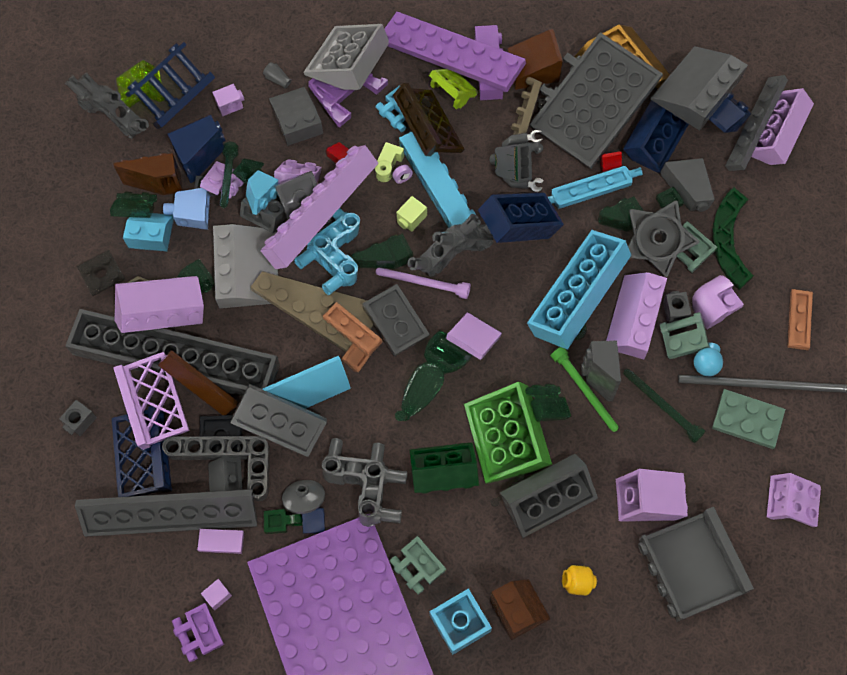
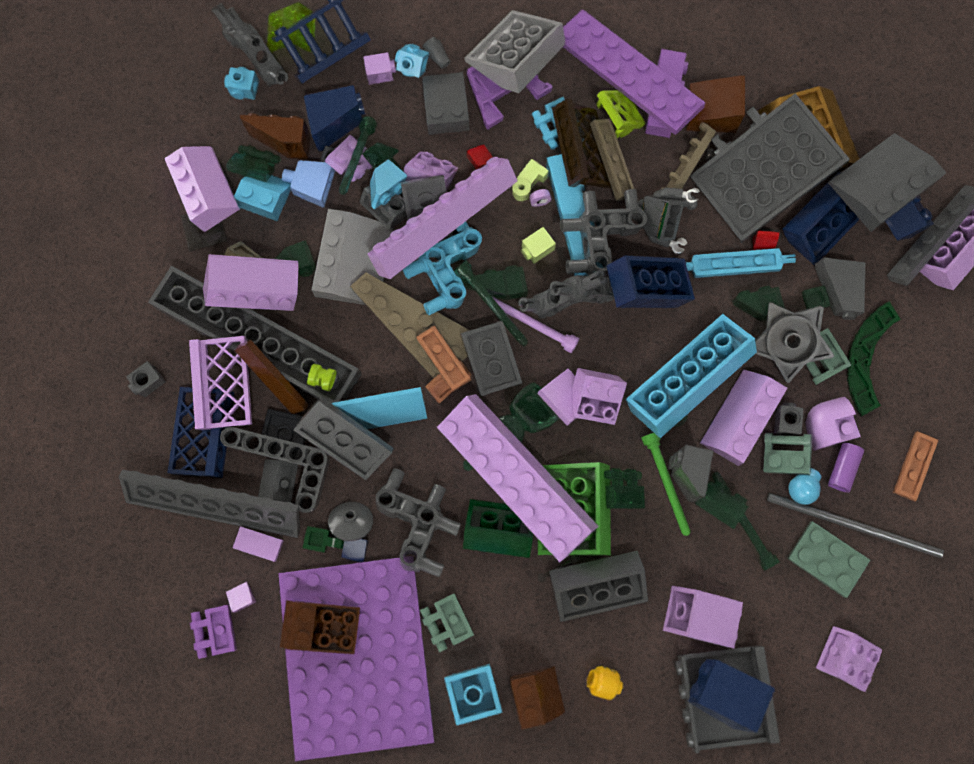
camera: 15 degrees right, 10 degrees up
(91, 233) = (202, 185): none -> lavender slope
(106, 140) = (242, 83): none -> medium azure brick
(245, 369) = (321, 377): none -> lime wheel
(256, 86) = (411, 60): none -> medium azure brick
(299, 597) = (319, 627): none -> reddish brown slope
(353, 249) = (464, 270): none -> clear green piece
(448, 413) = (517, 477): none -> lavender brick
(458, 127) = (612, 157): none -> dark tan tile
(467, 178) = (608, 223): none -> dark grey pin
(500, 328) = (597, 396): none -> lavender slope
(639, 392) = (723, 504): none -> clear green brick
(696, 556) = (731, 696): none -> dark blue slope
(739, 334) = (846, 467): none -> medium lavender pin

